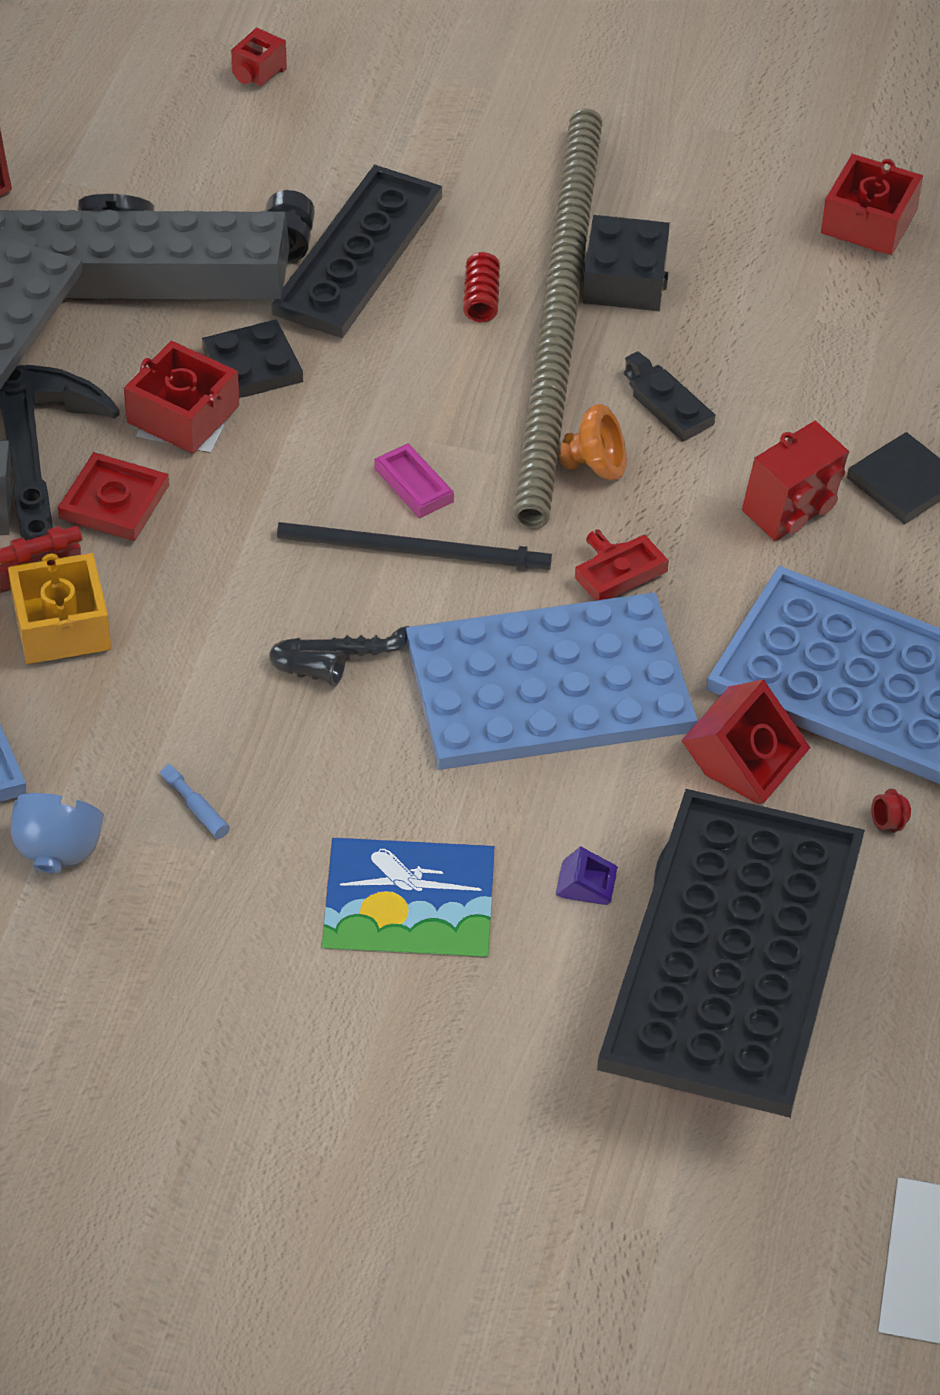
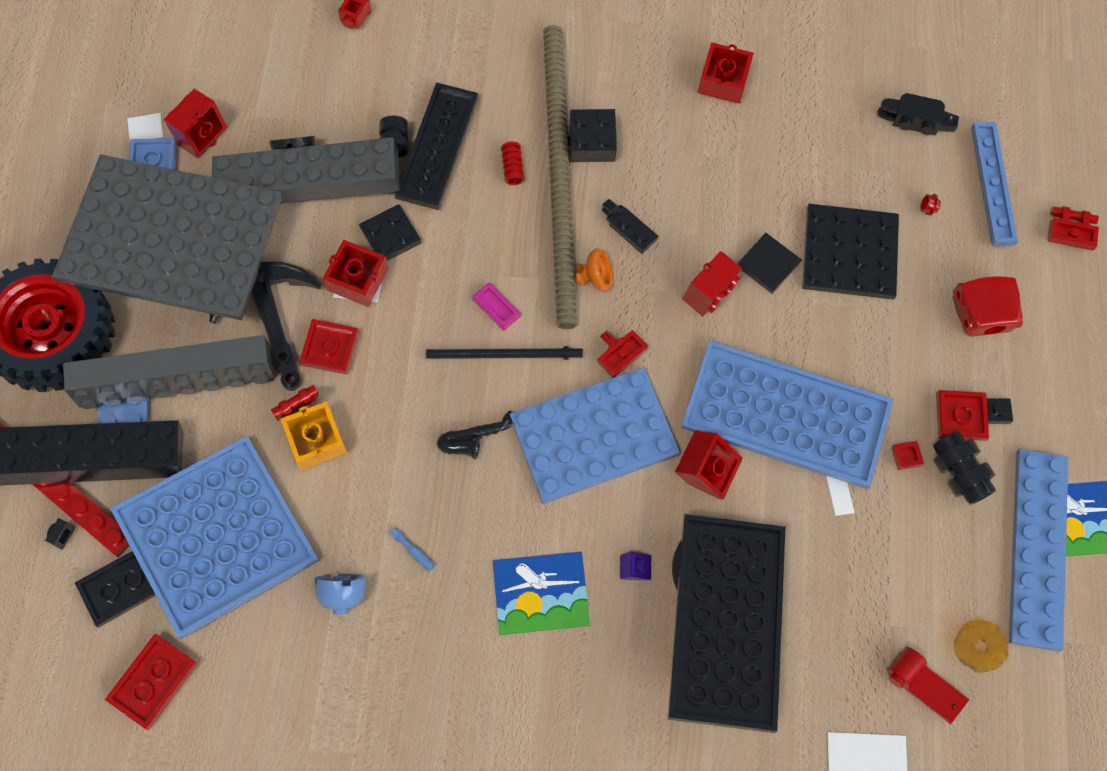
camera: 10 degrees left, 20 degrees up
(890, 811) = (793, 497): red plate -> none

